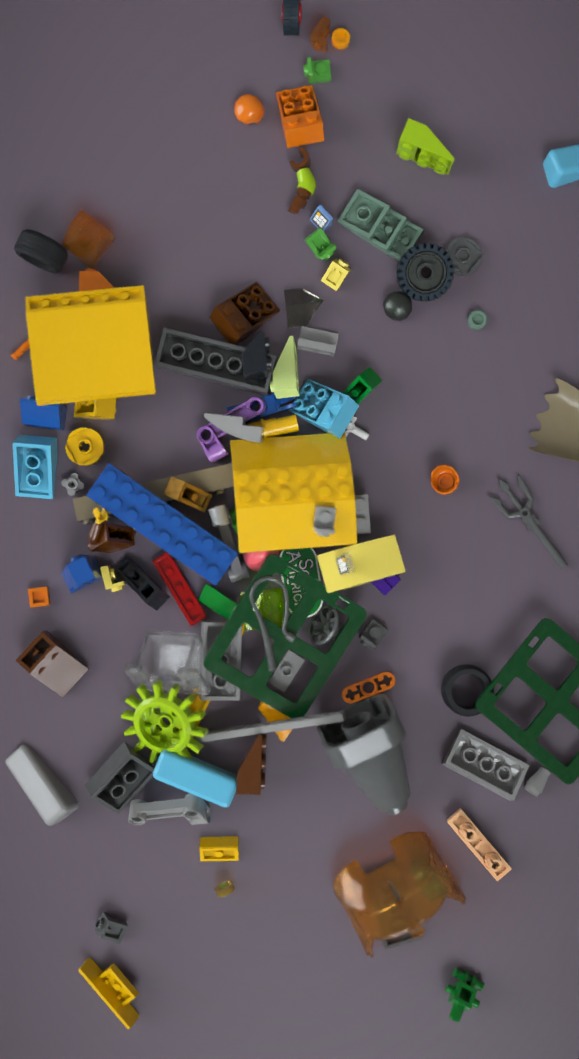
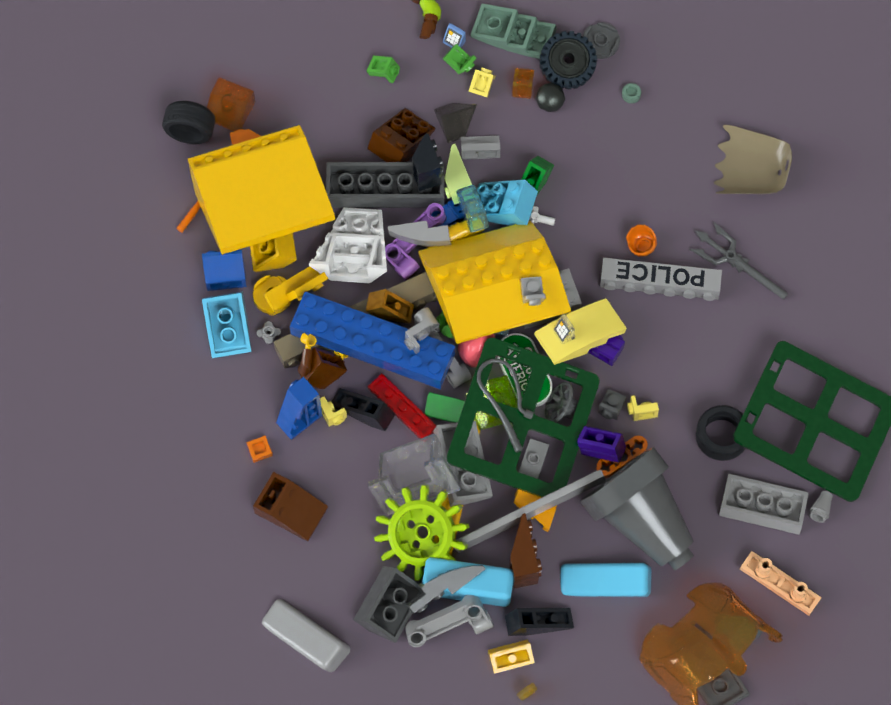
camera: 15 degrees left, 20 degrees down
(111, 447) = (295, 287): none -> yellow bracket
(171, 418) = (353, 248): none -> white wedge
(179, 779) = (434, 589): none -> slope
(205, 537) = (415, 333): none -> light grey bracket
(245, 235) = (383, 67): none -> bright green bracket
(251, 826) = (538, 621): none -> black slope
(291, 411) = (472, 208): none -> clear light blue brick
(323, 800) = (606, 579): none -> medium azure piece
(351, 678) = (601, 444): none -> dark purple brick
(375, 284) = (523, 83): none -> clear orange bracket
(401, 649) = (643, 411): none -> light yellow bracket
(452, 521) = (661, 279): none -> light grey brick

